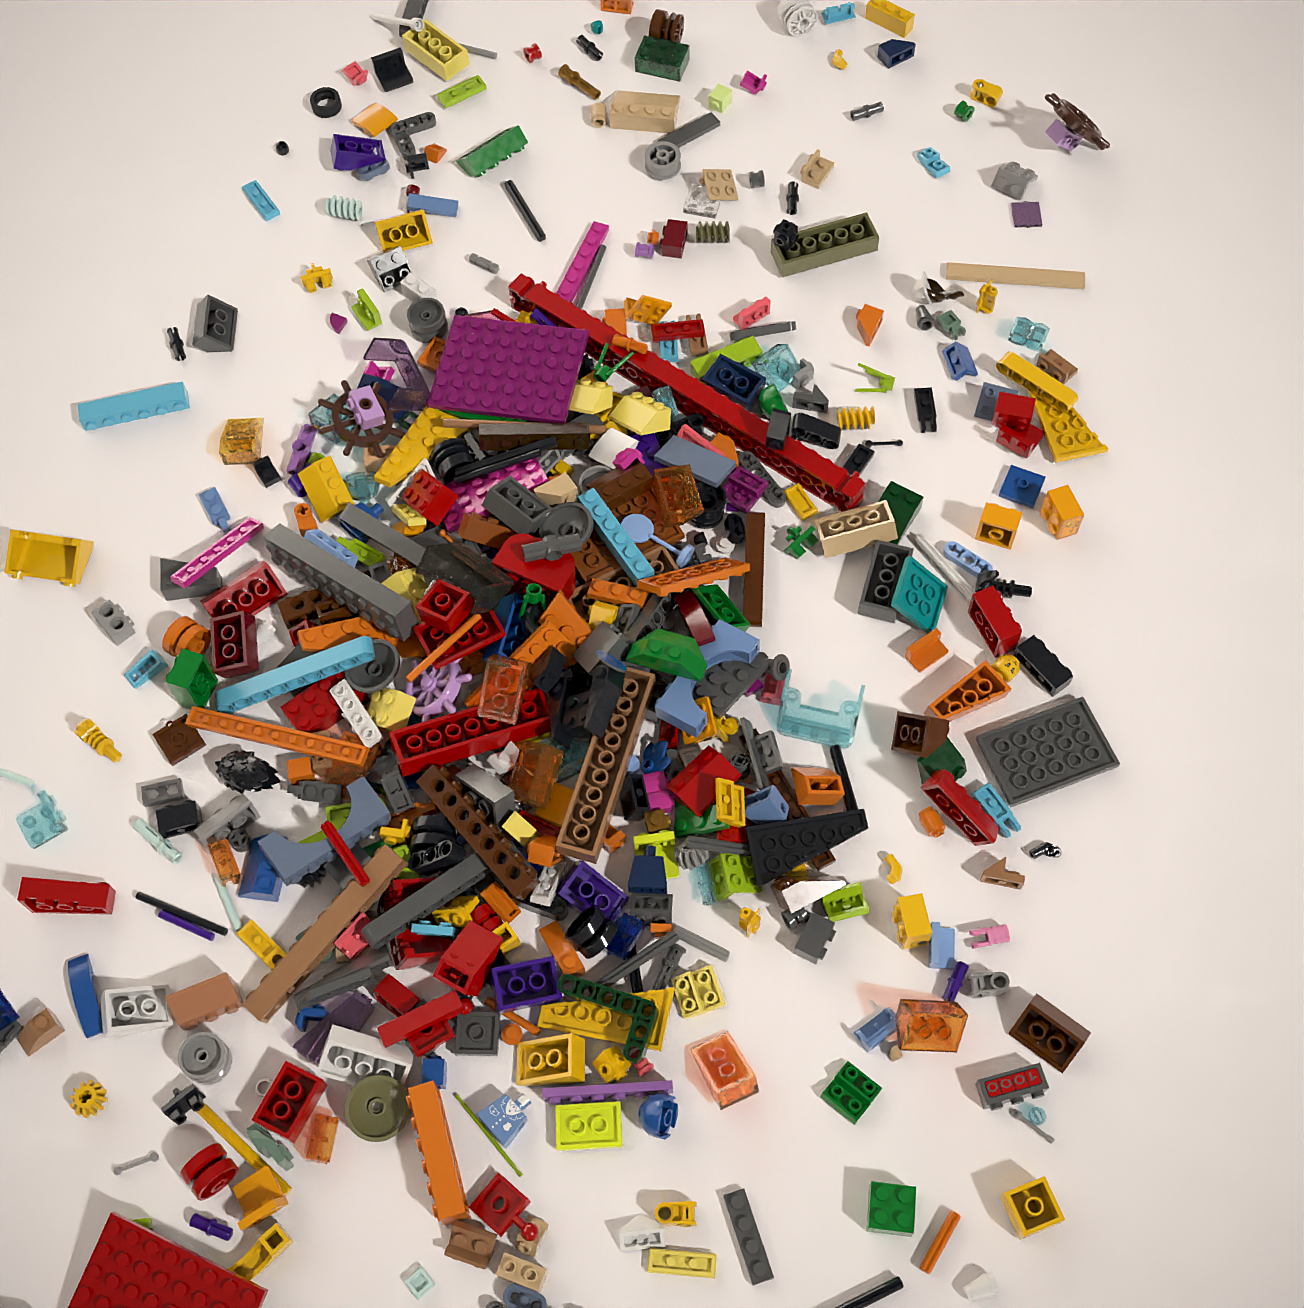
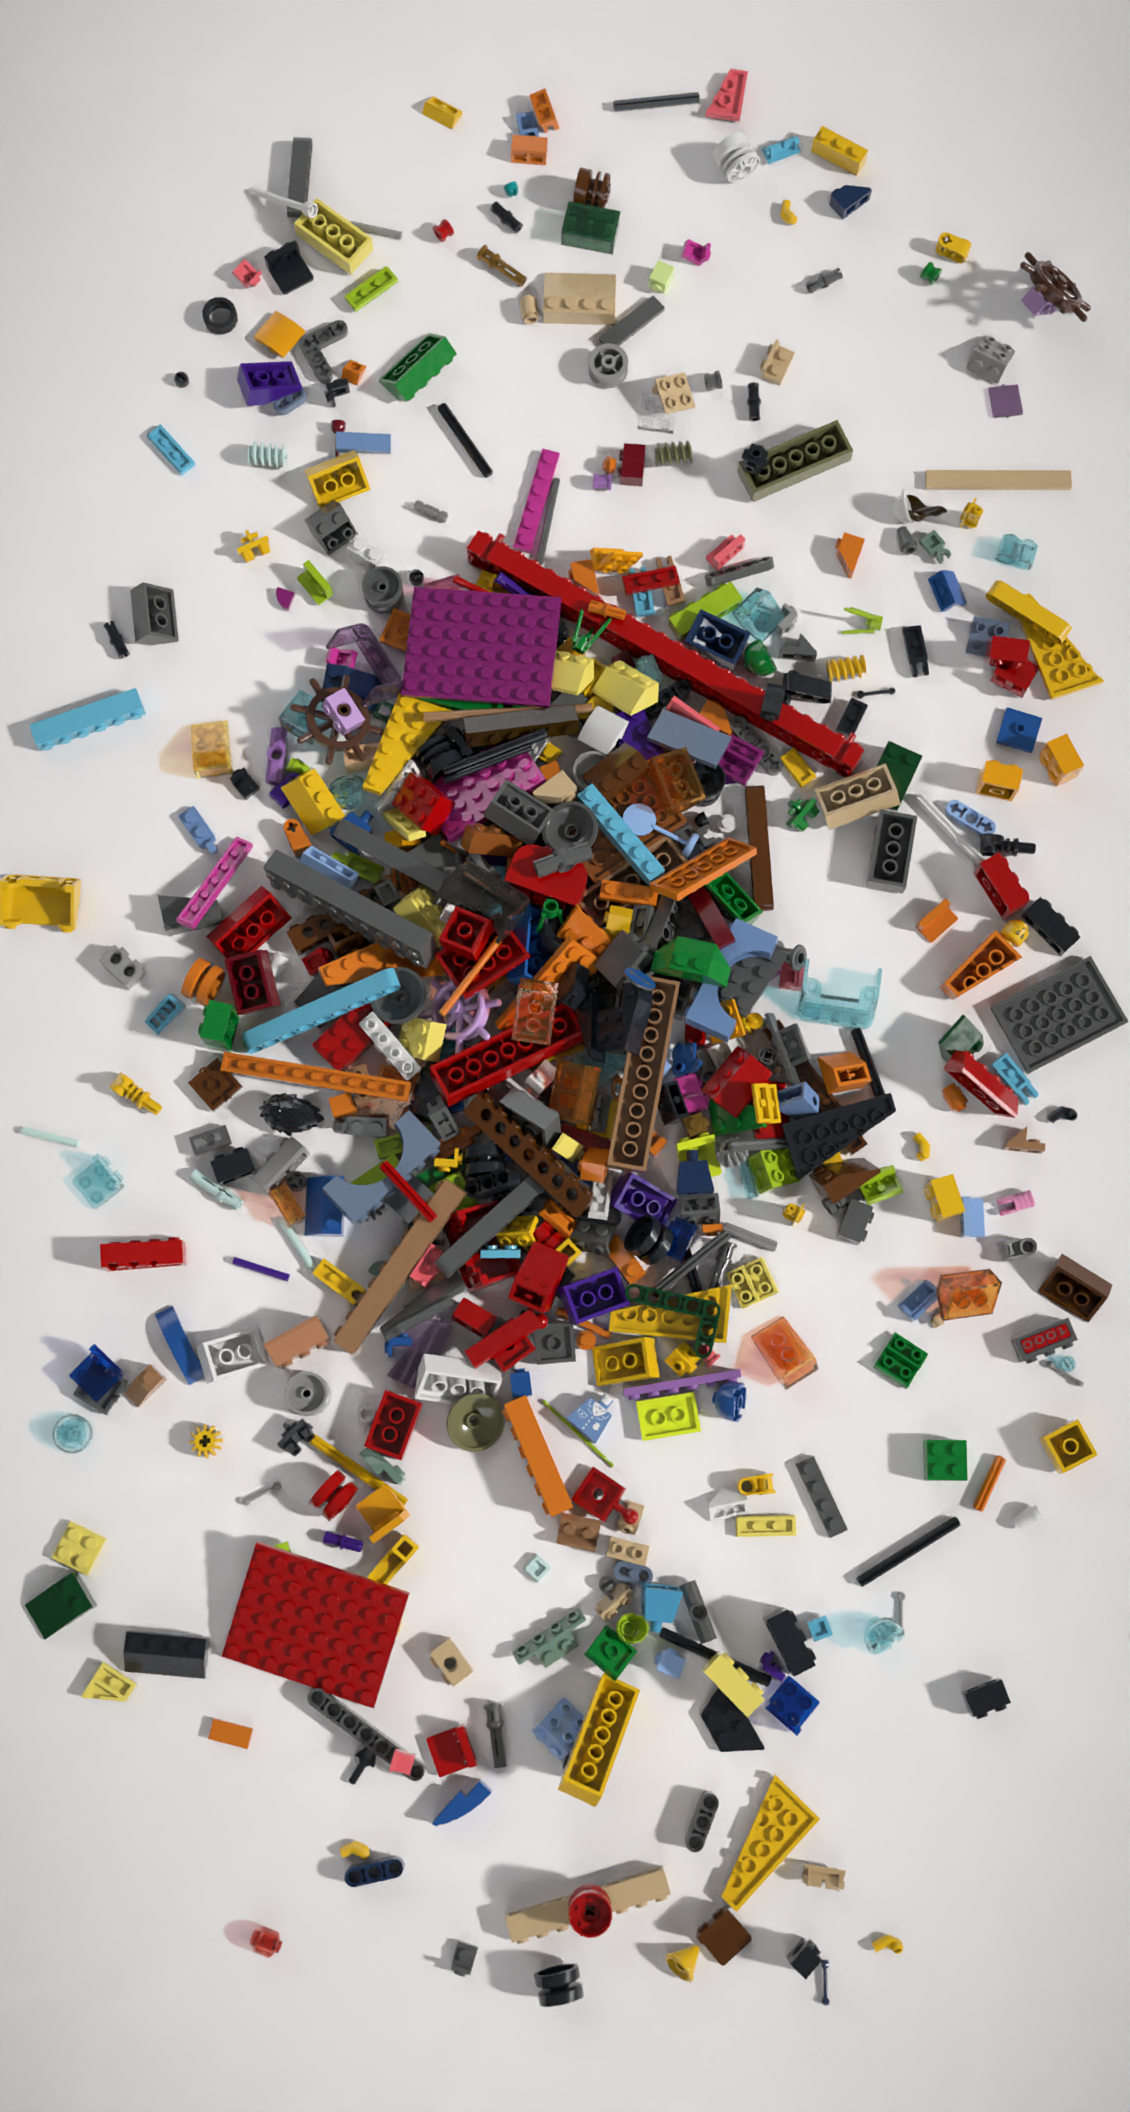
camera: 10 degrees left, 15 degrees up
(181, 913) = (254, 1258): black piece -> none
(322, 1139) = (428, 1454): clear orange hinge -> none
(534, 926) = (593, 1237): none -> dark grey bracket
(559, 800) = (600, 1113): none -> dark grey hinge
(626, 457) = (620, 743): dark pink bracket -> none
(734, 528) = (737, 805): black beam -> none
(918, 734) = (937, 1013): reddish brown slope -> none
(919, 595) = (926, 865): teal plate -> none
(931, 160) = (901, 343): medium azure slope -> none
(955, 981) = (987, 1249): dark purple axle -> none
(1056, 366) = (1046, 587): medium nougat bracket -> none

